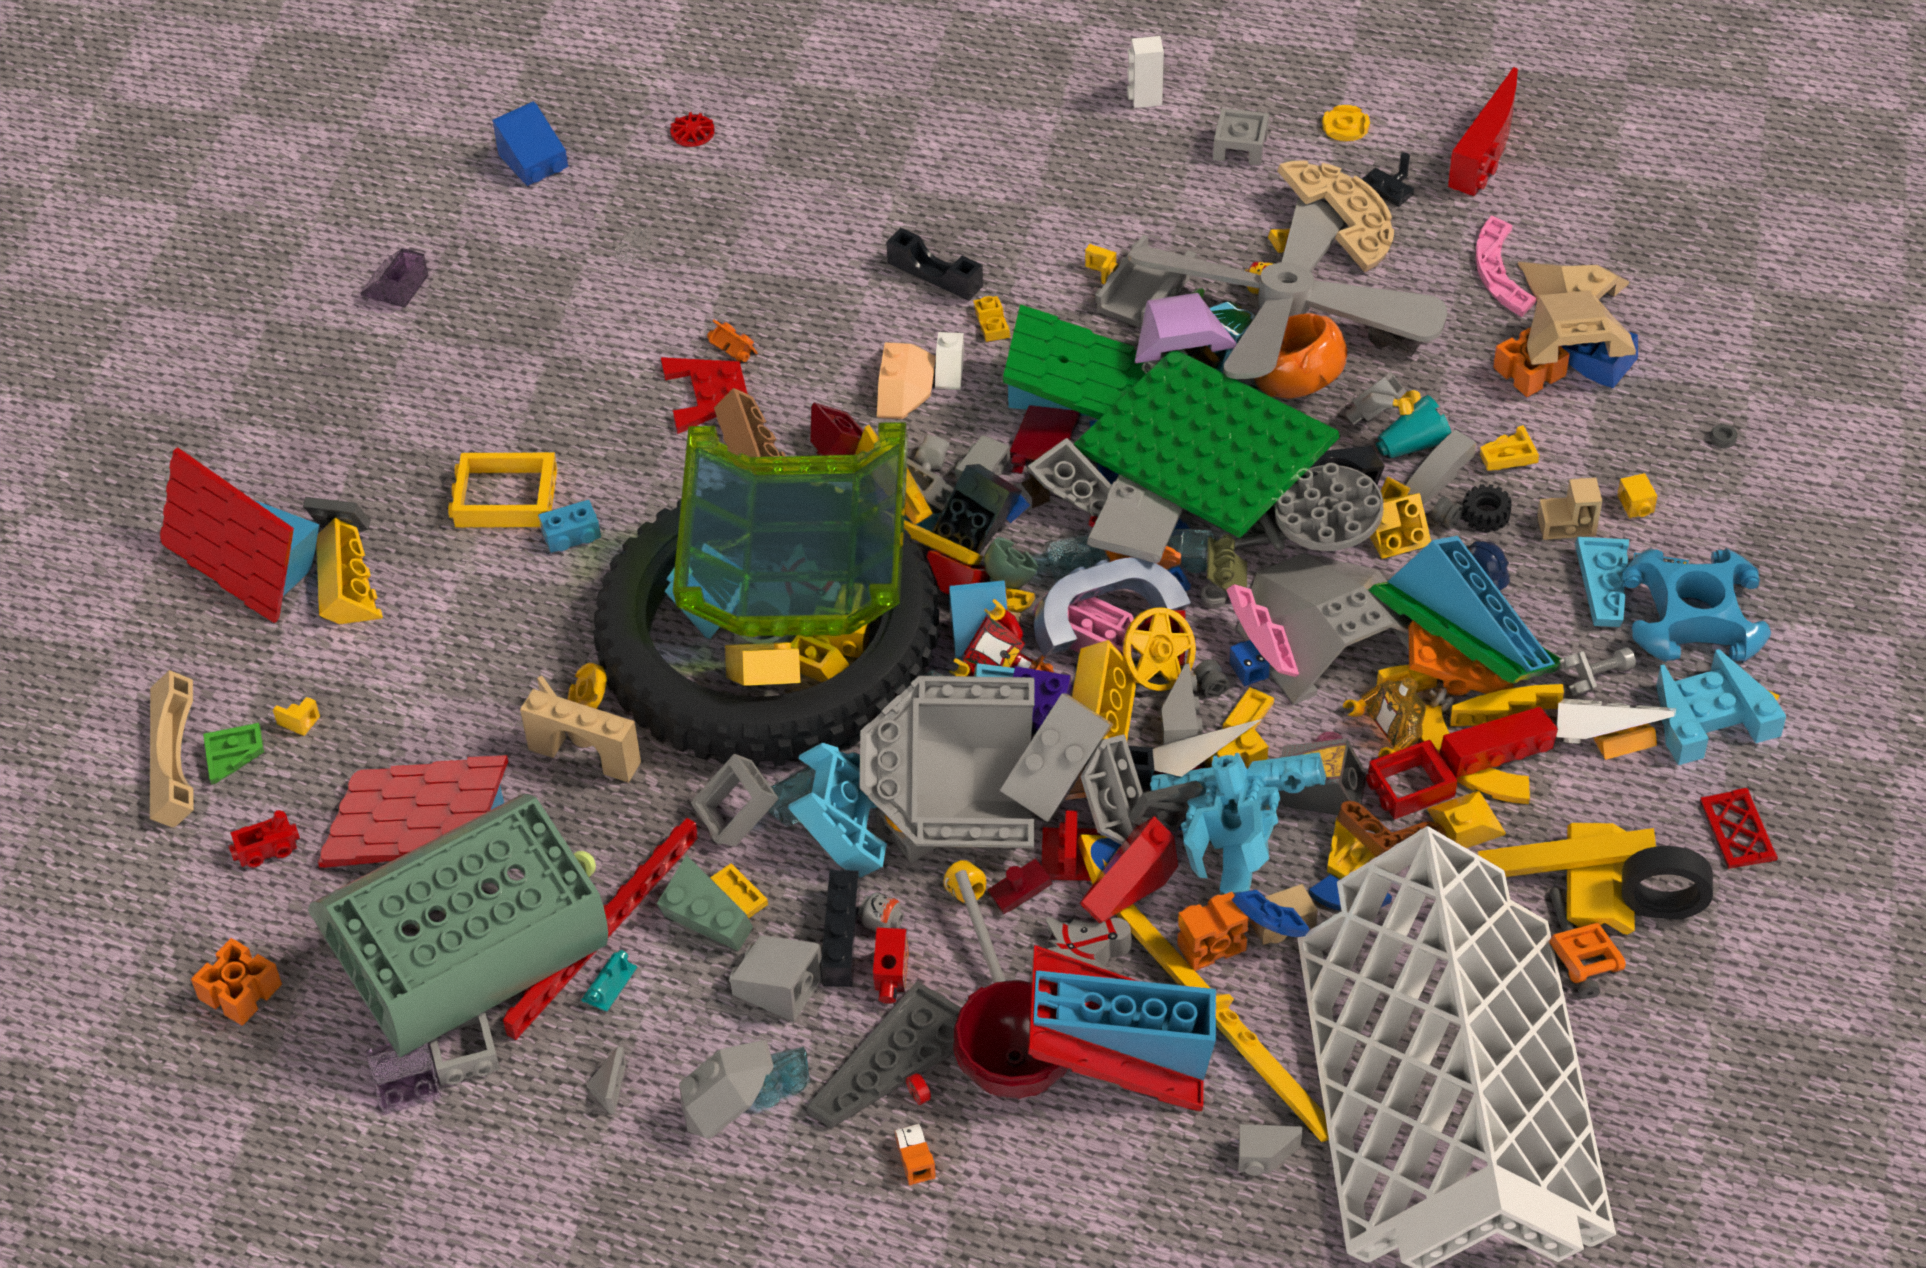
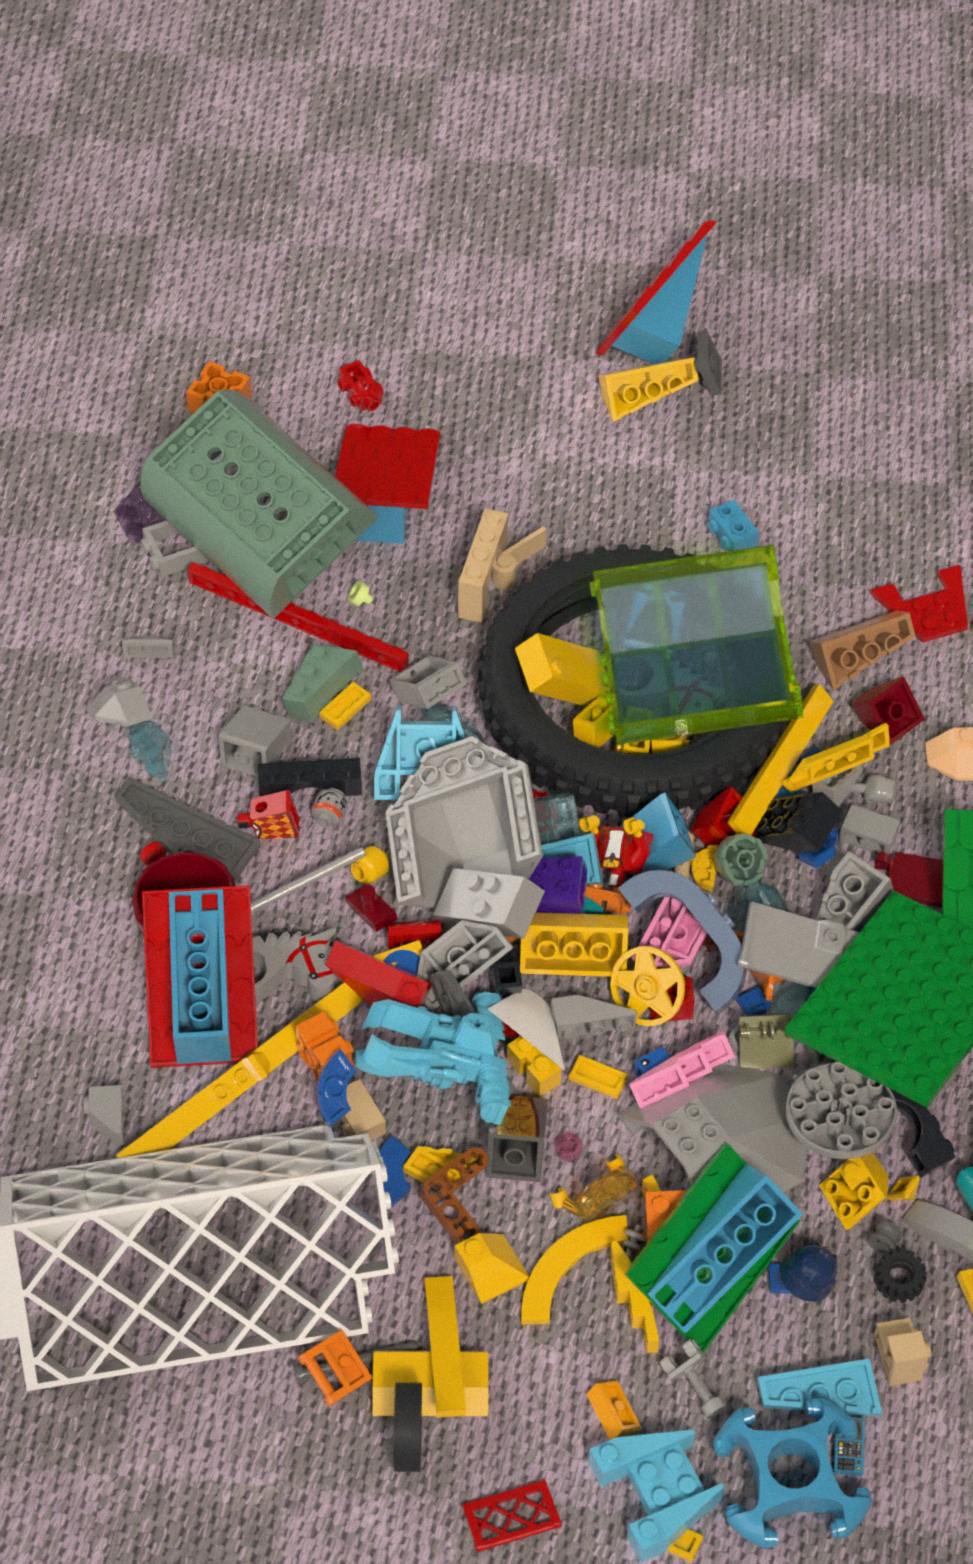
camera: 80 degrees right, 5 degrees up
(169, 706) = (443, 308): tan arch -> none
(231, 749) = (452, 349): bright green wing -> none
(297, 718) = (491, 385): yellow panel -> none
(503, 514) = (768, 504): yellow window -> none
(589, 685) = (536, 565): yellow tile -> none
(610, 981) = (245, 632): teal hinge -> none
(915, 1154) = (90, 858): orange leg -> none
(1211, 677) = (629, 1040): dark grey wheel -> none
(1405, 759) = (541, 1236): red window -> none
(1498, 742) = (580, 1286): red brick -> none
(1590, 719) = (624, 1376): white wedge -> none
(1637, 495) = (943, 1420): yellow brick -> none

